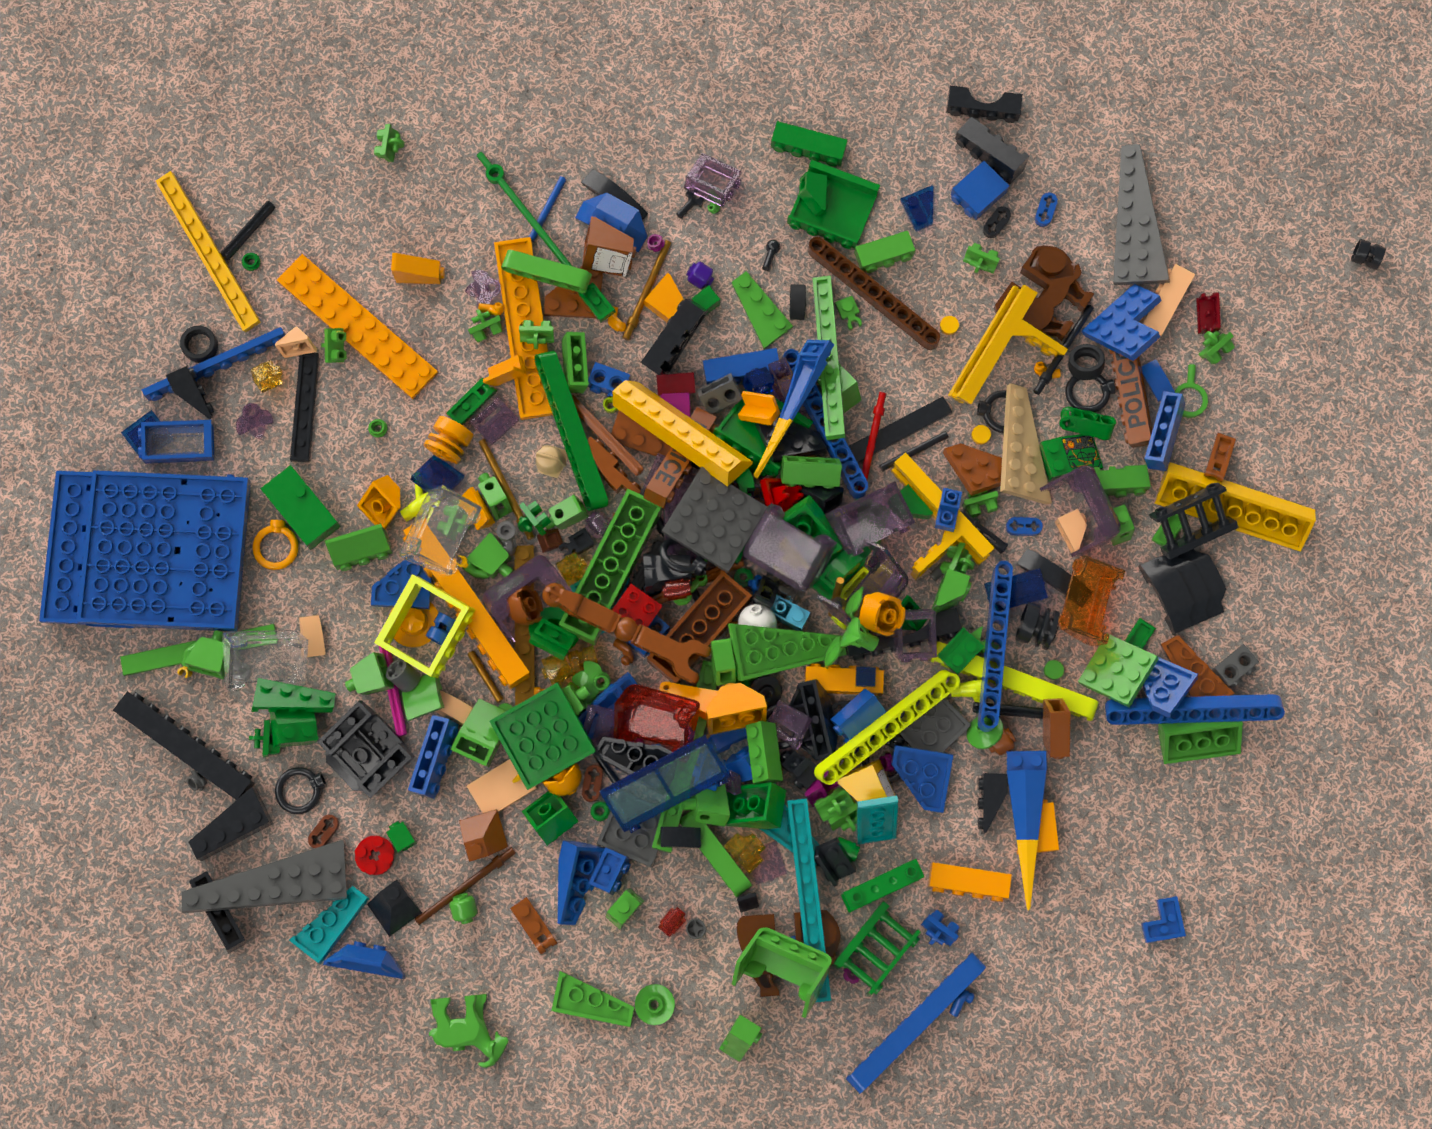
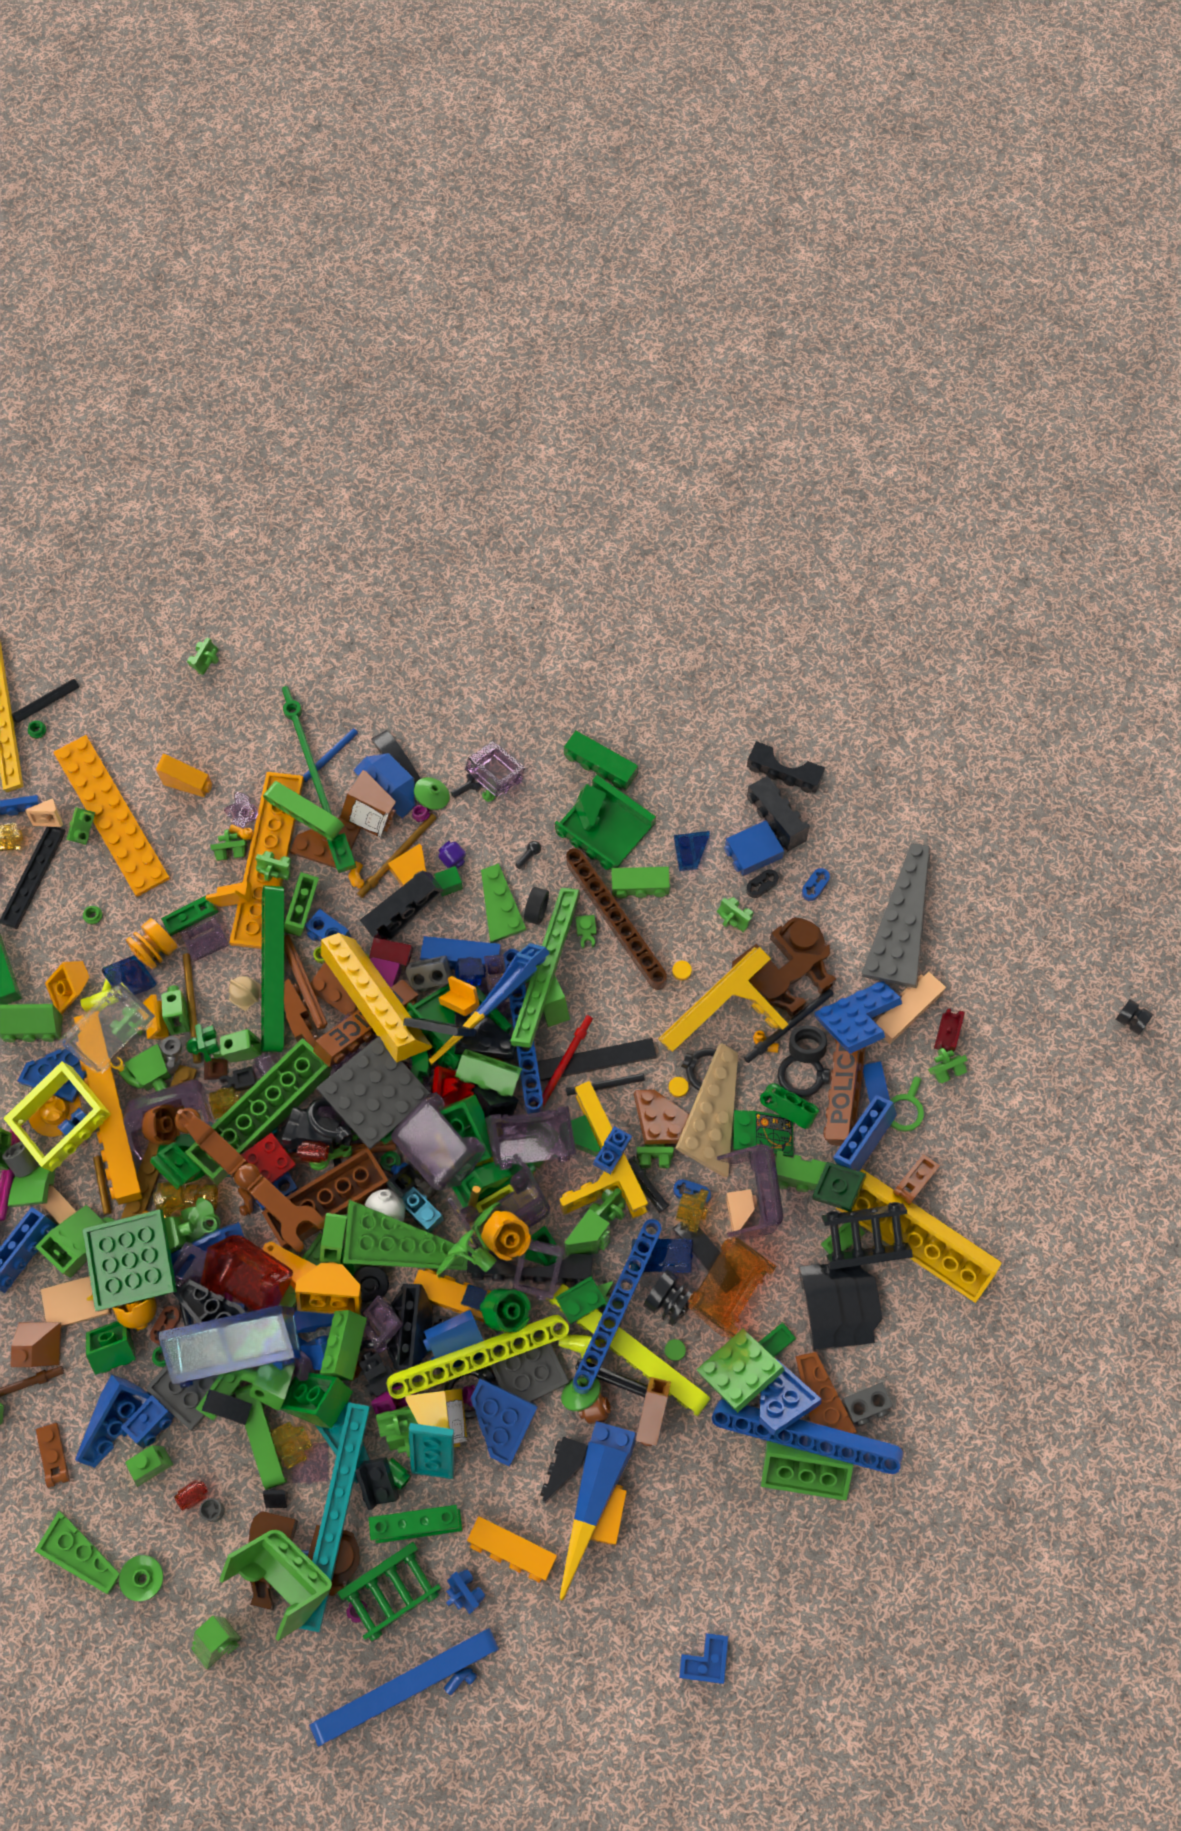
camera: 20 degrees right, 10 degrees down
(659, 220) = (431, 793): none -> bright green dish
(757, 442) = (440, 1027): none -> black tile
(898, 679) = (506, 1310): none -> green brick
(1031, 541) = (692, 1209): none -> clear yellow brick
(1126, 525) = (791, 1219): bright green torso -> none
(1157, 483) = (839, 1186): none -> dark green plate

